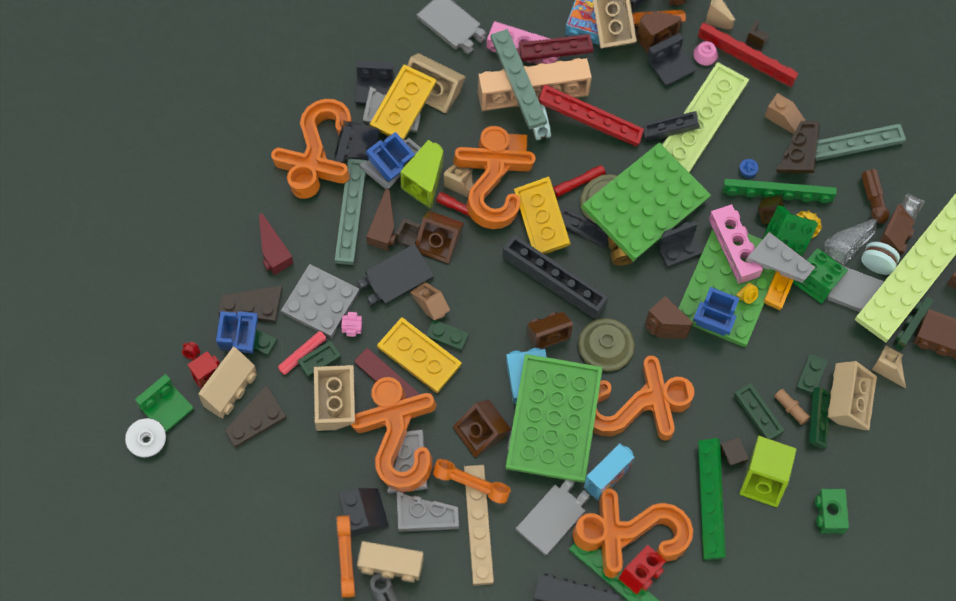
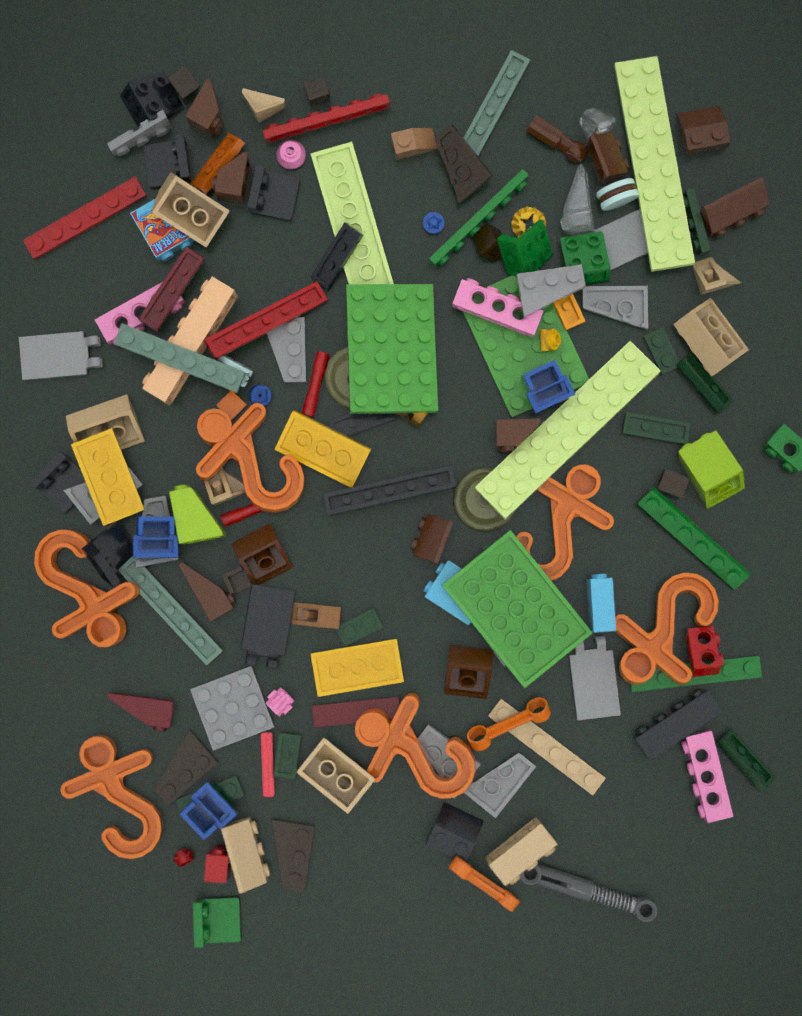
camera: 45 degrees left, 20 degrees up
(139, 431) = (229, 971): white dish -> none
(203, 258) = (106, 778): none -> orange piece
(541, 154) = (260, 394): none -> blue tile
(586, 148) = (290, 350): none -> light grey wing
(679, 245) = (455, 357): black bracket -> none
(702, 354) = (567, 430): none -> yellowish green plate
(792, 407) = (675, 396): medium nougat pin -> none
(814, 319) = (619, 303): none -> light grey wing

